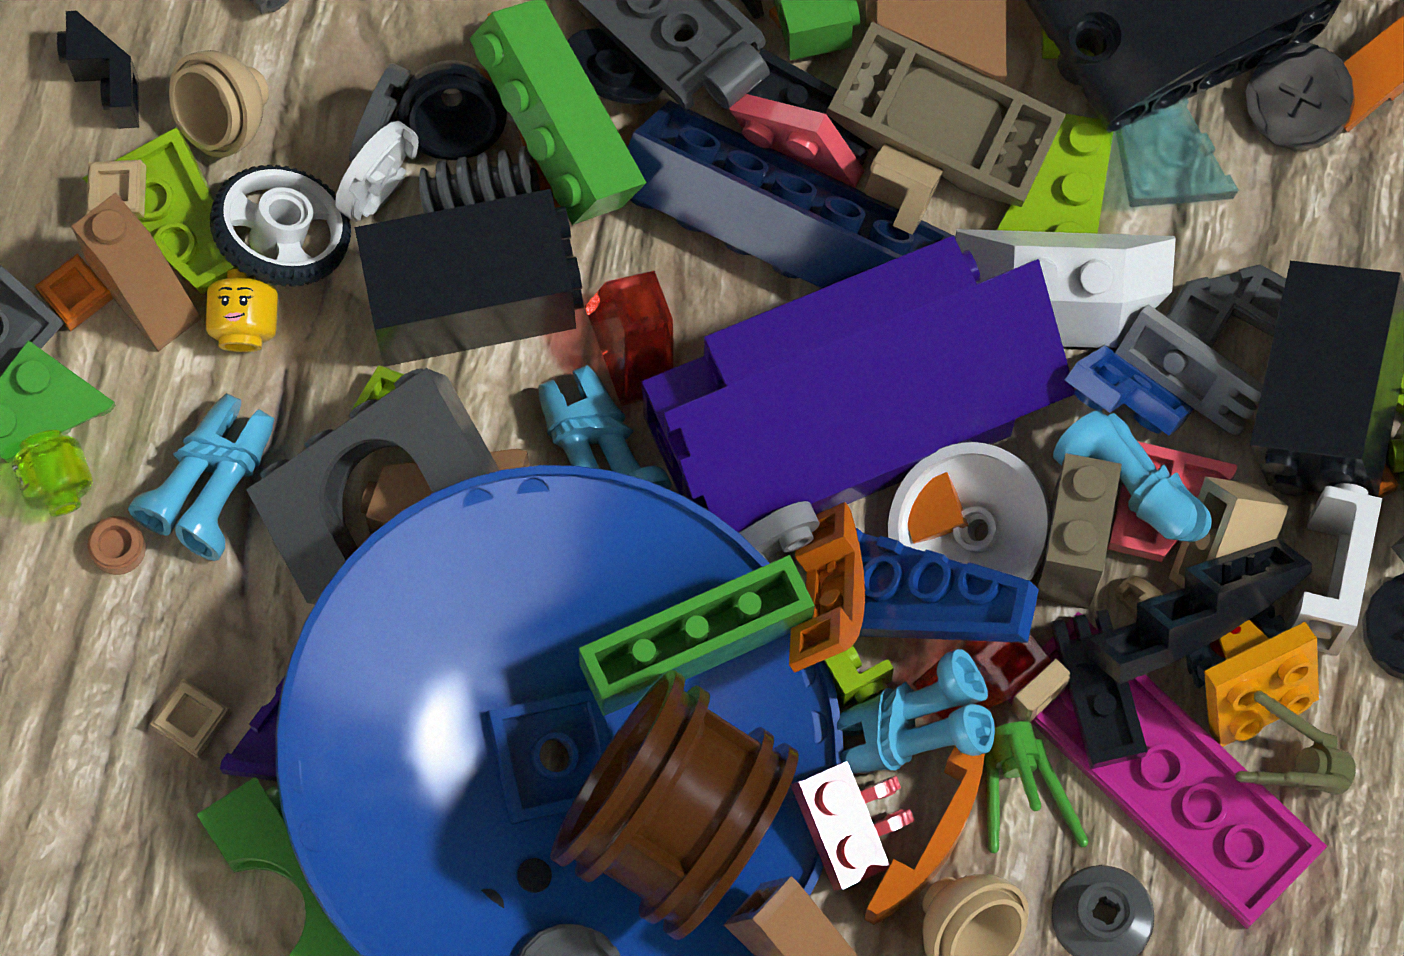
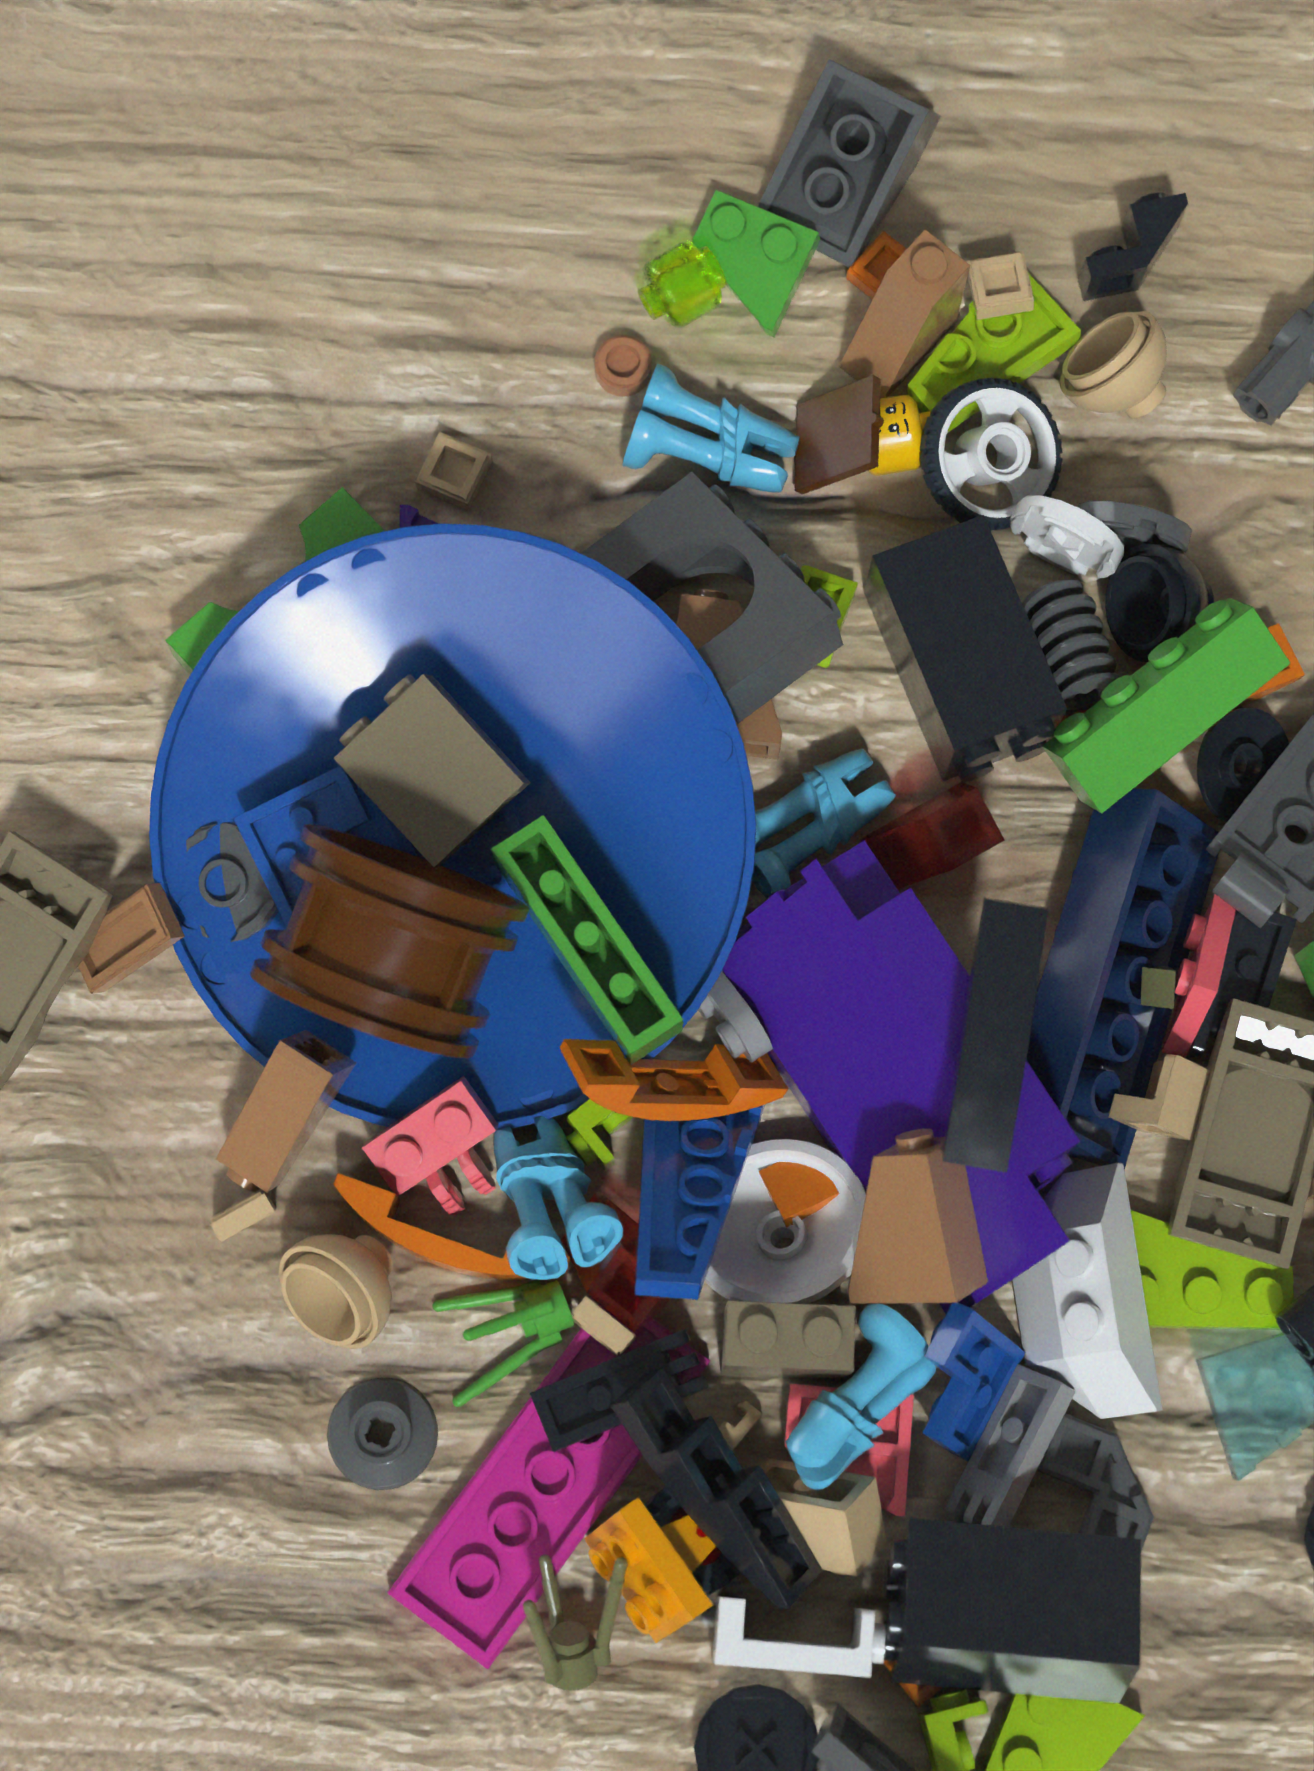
camera: 80 degrees right, 5 degrees up
(235, 354) = (838, 435): none -> reddish brown piece
(508, 753) = (430, 768): none -> dark tan brick
(538, 900) = (275, 829): none -> blue plate
(805, 168) = (1158, 987): none -> olive piece
(853, 279) = (995, 1034): none -> black slope
(1000, 393) = (917, 1228): none -> medium nougat slope

